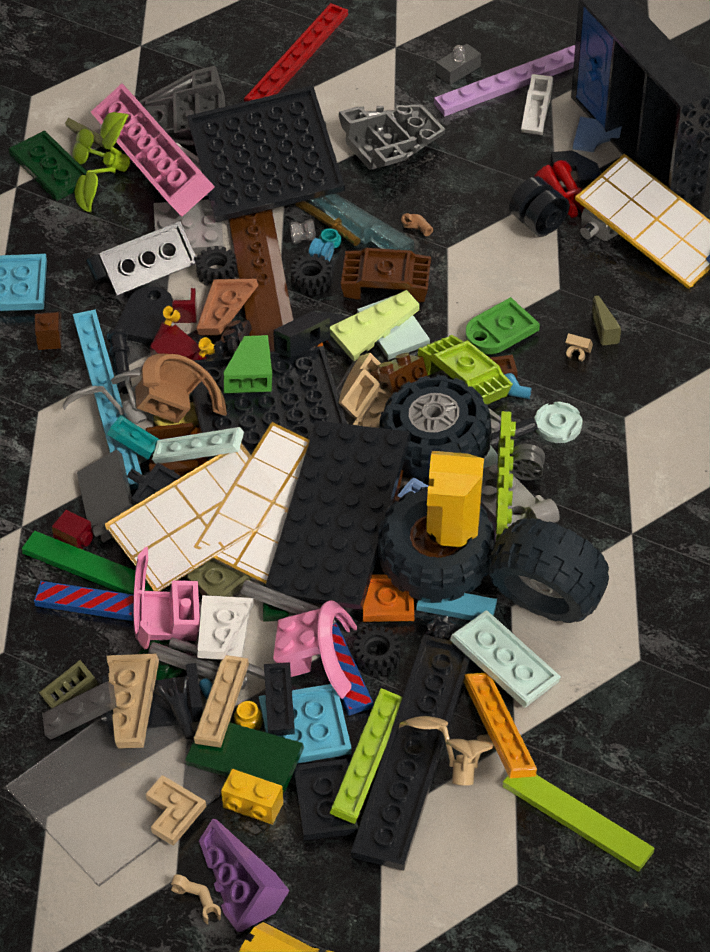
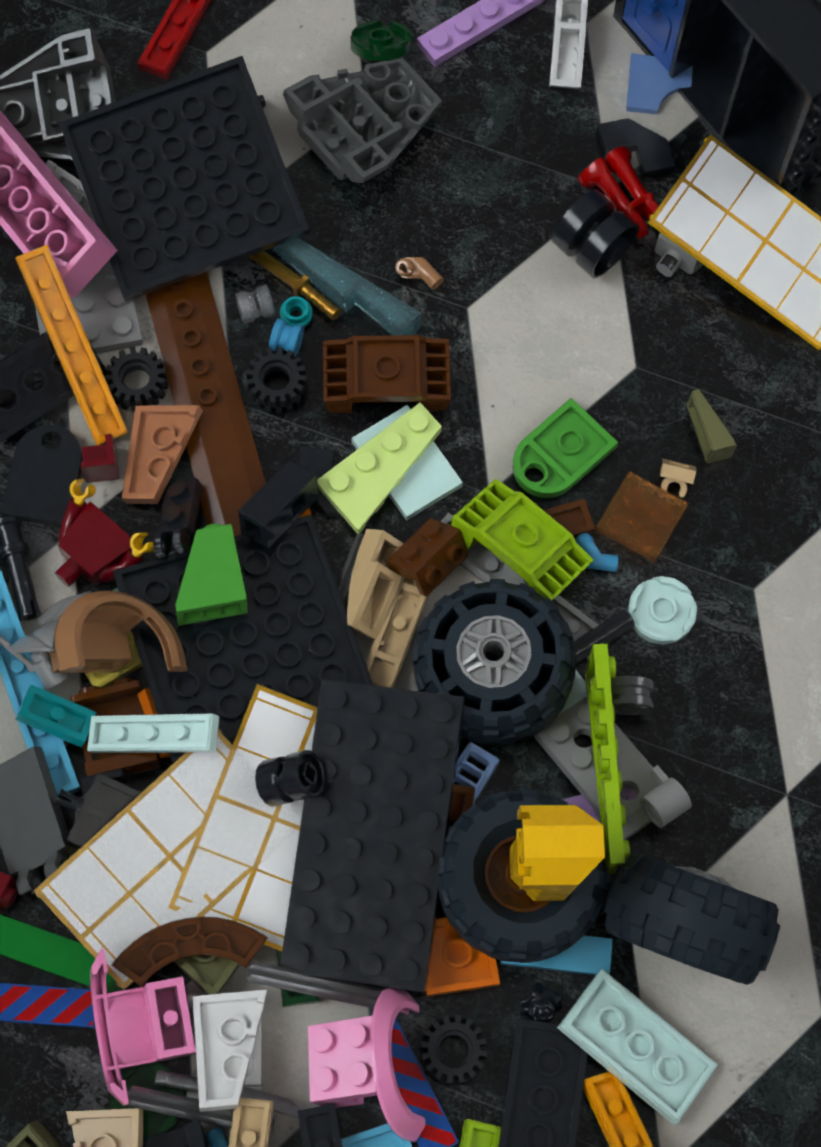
camera: 10 degrees left, 20 degrees up
(176, 235) = (71, 344): none -> light orange tile
(204, 563) = (187, 938): none -> reddish brown tile
(286, 470) = (290, 778): none -> black wheel
(407, 96) = (381, 41): none -> dark green tile
(550, 367) = (641, 516): none -> clear orange plate

